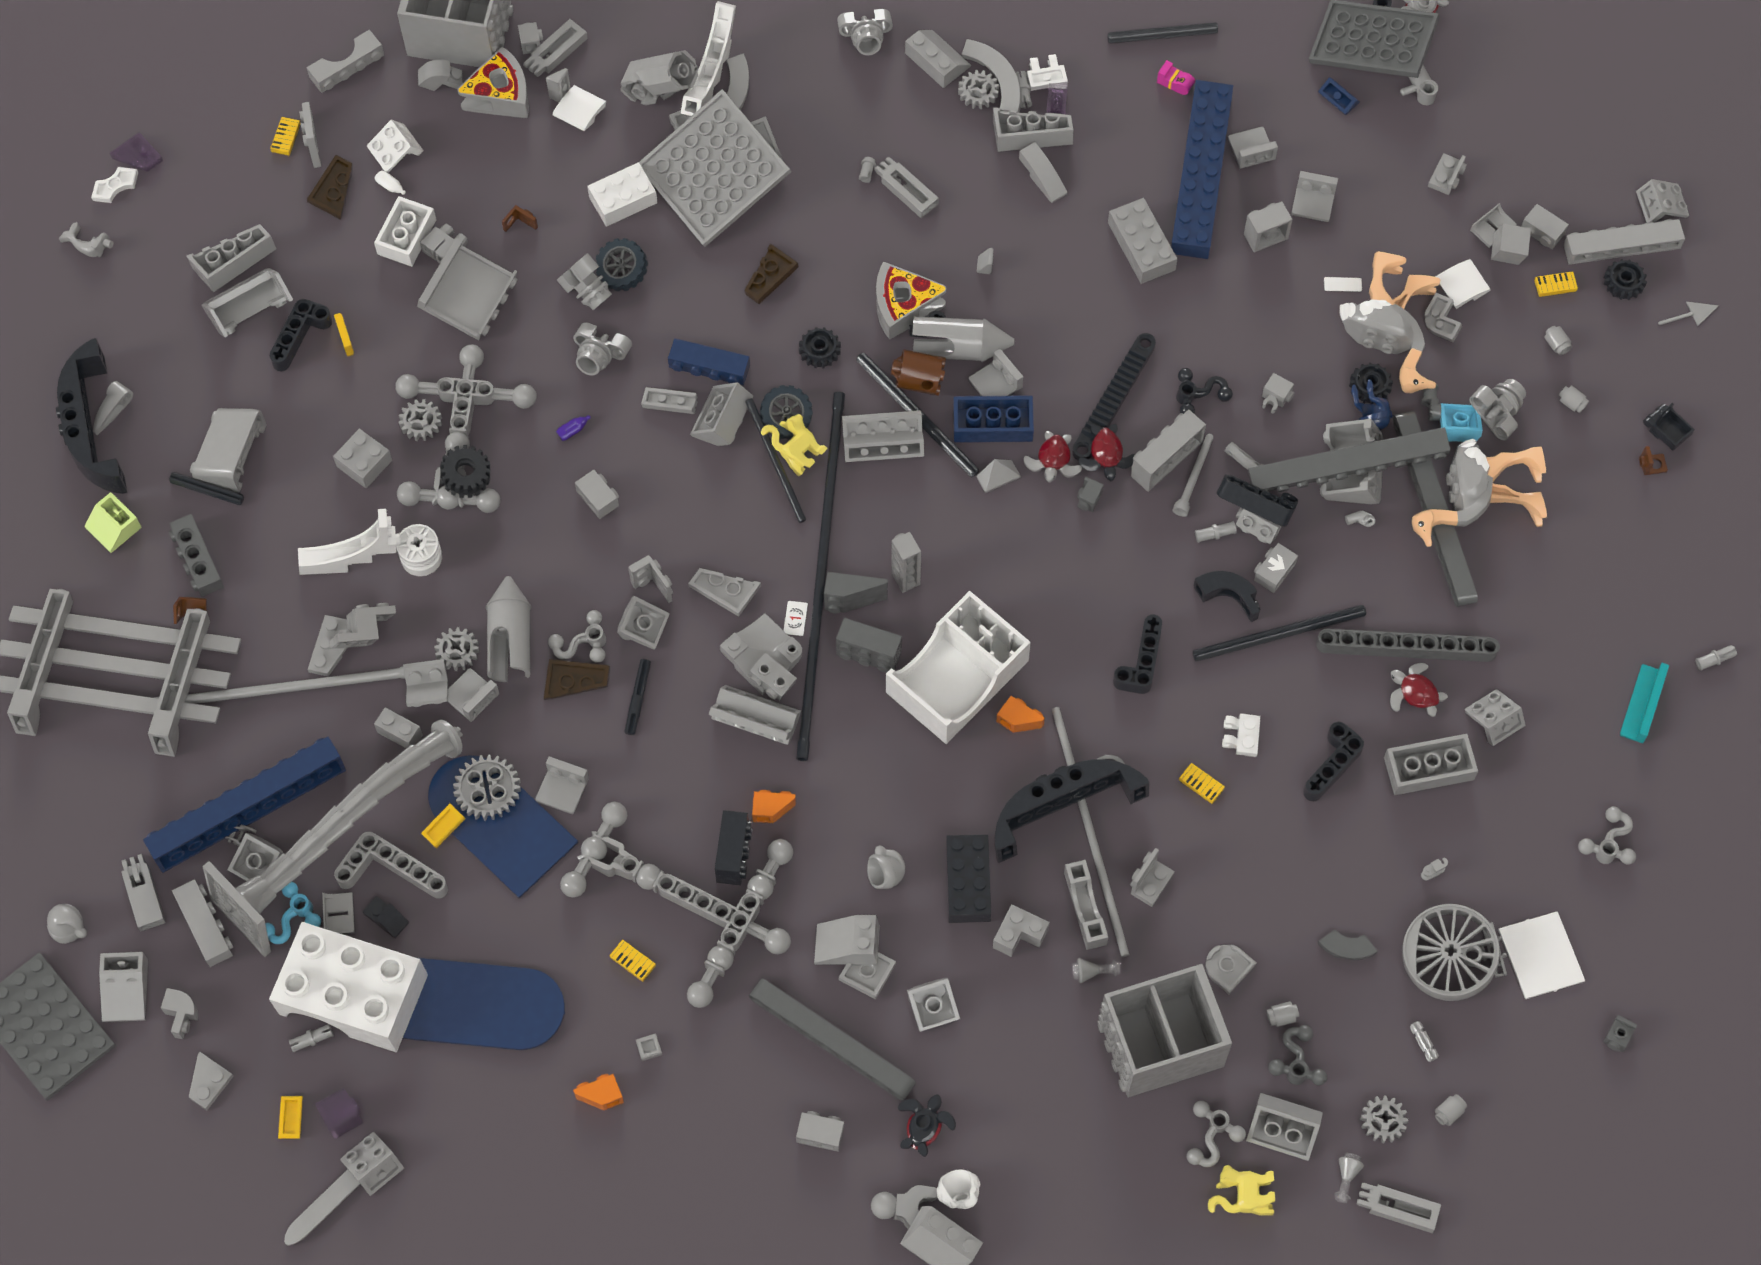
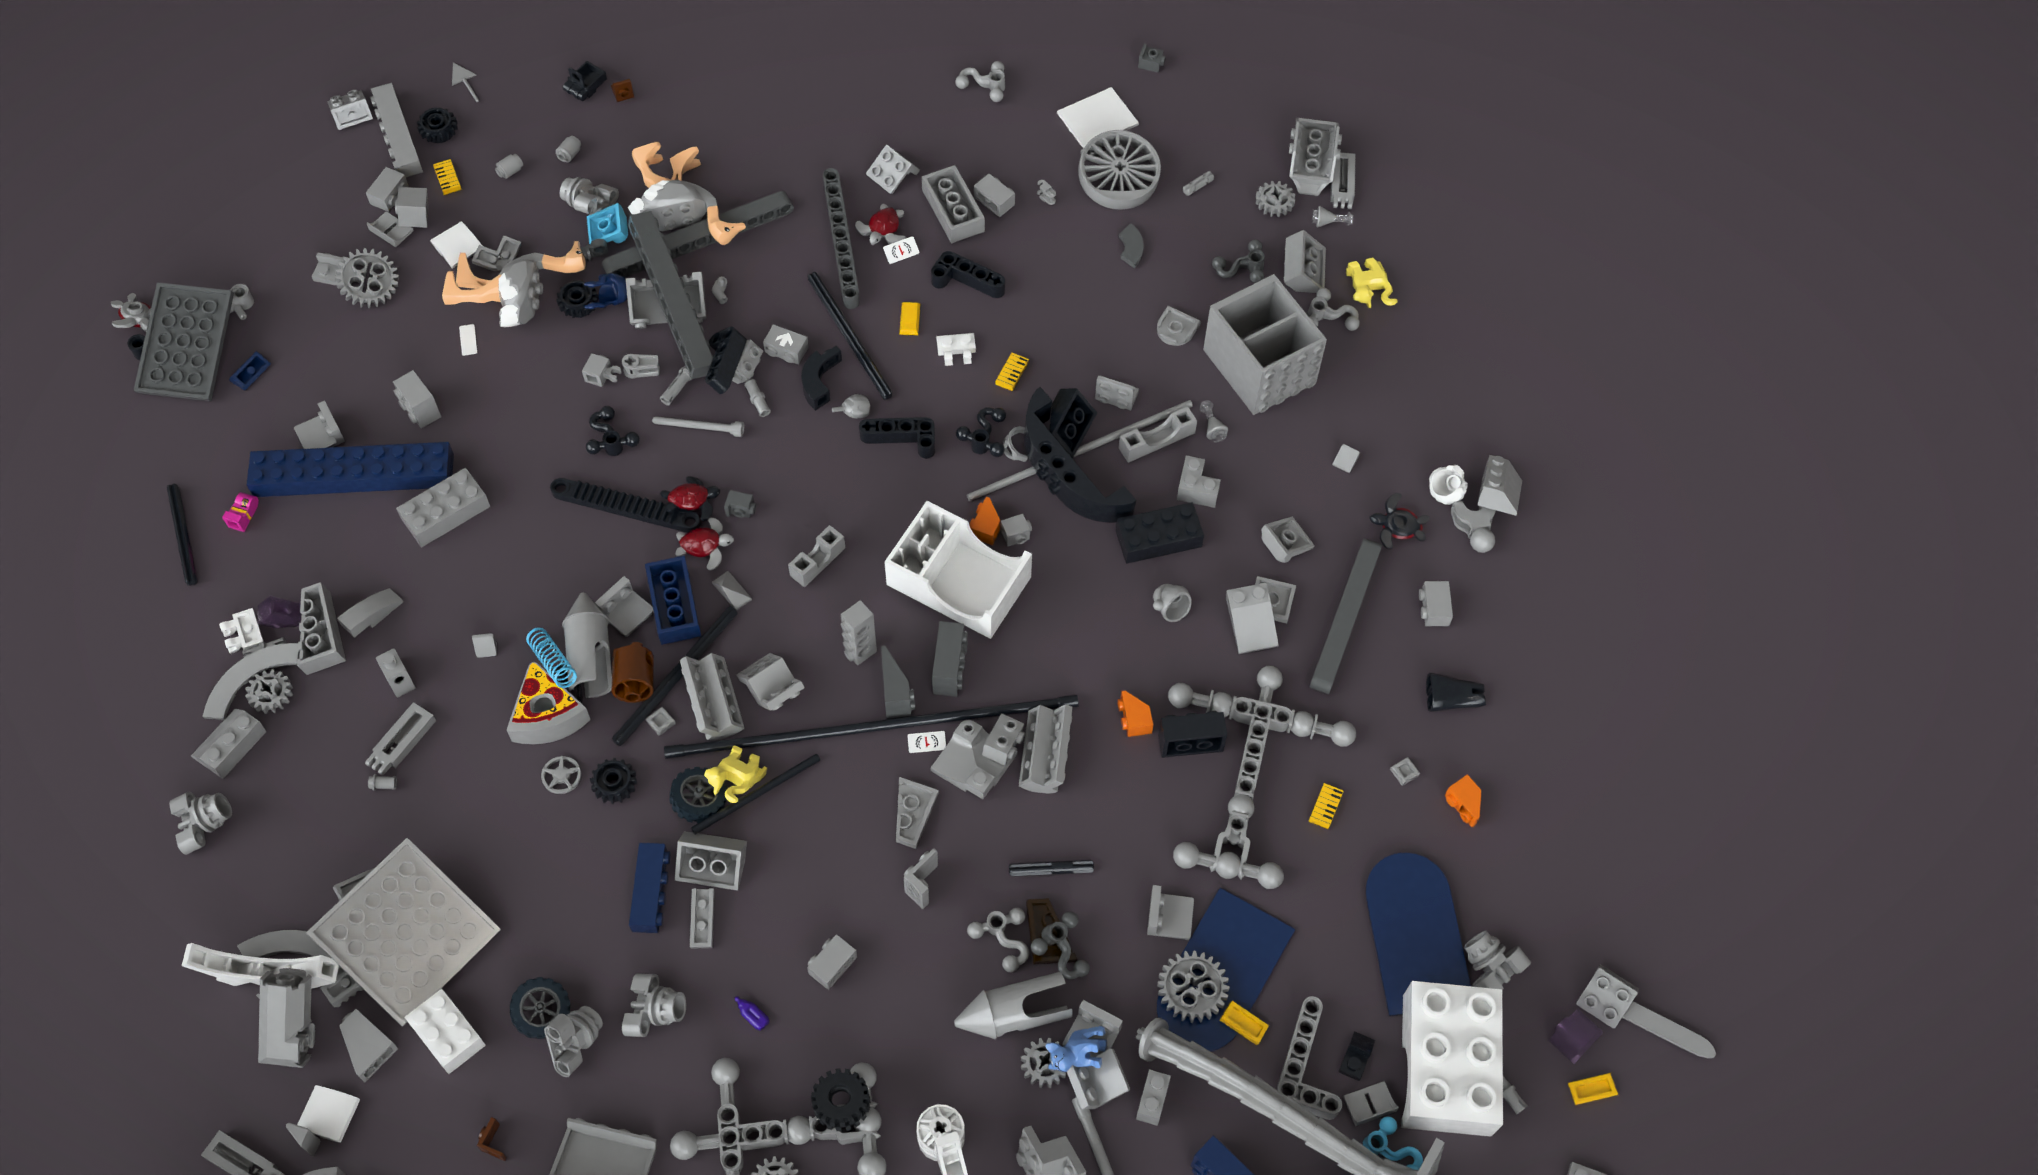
camera: 105 degrees left, 5 degrees down
(436, 1056) = (1488, 955): none -> light grey beam
(452, 669) = (1078, 1050): none -> medium blue animal
(557, 661) = (1040, 946): none -> dark grey piece
(629, 137) = (365, 1044): none -> light grey slope
(642, 622) = (970, 881): light grey slope -> none
(717, 1117) = (1452, 693): none -> black piece
(771, 273) = (527, 851): dark brown wing -> none
(840, 309) = (561, 775): none -> light grey wheel
(873, 396) = (660, 721): none -> light grey tile
(884, 487) = (770, 682): none -> light grey bracket
(971, 185) = (393, 668): none -> light grey torso
(975, 305) = (537, 653): none -> medium azure piece
(1003, 542) = (827, 548): none -> light grey arch
(1003, 742) = (1016, 530): none -> light grey brick
(1019, 1096) = (1346, 458): none -> light grey slope
(1115, 815) = (1070, 419): none -> black slope
(1129, 716) = (980, 437): none -> black piece
(1167, 450) = (682, 443): light grey brick -> none
(1188, 621) = (854, 406): none -> light grey piece
(1275, 430) = (641, 365): none -> light grey piece
(1282, 1014) = (1208, 279): light grey brick -> none
(1291, 697) = (909, 318): none -> yellow tile
(1314, 196) = (373, 372): light grey bracket -> none
(1382, 704) = (901, 250): none -> white sticker
(1423, 214) = (348, 274): none -> light grey gear
(1437, 811) = (994, 195): none -> light grey brick
(1441, 1176) = (1314, 154): none -> light grey slope
(1450, 1110) = (1252, 157): light grey brick -> none
(1643, 702) = (854, 71): teal panel -> none
(1715, 657) = (801, 30): light grey axle -> none

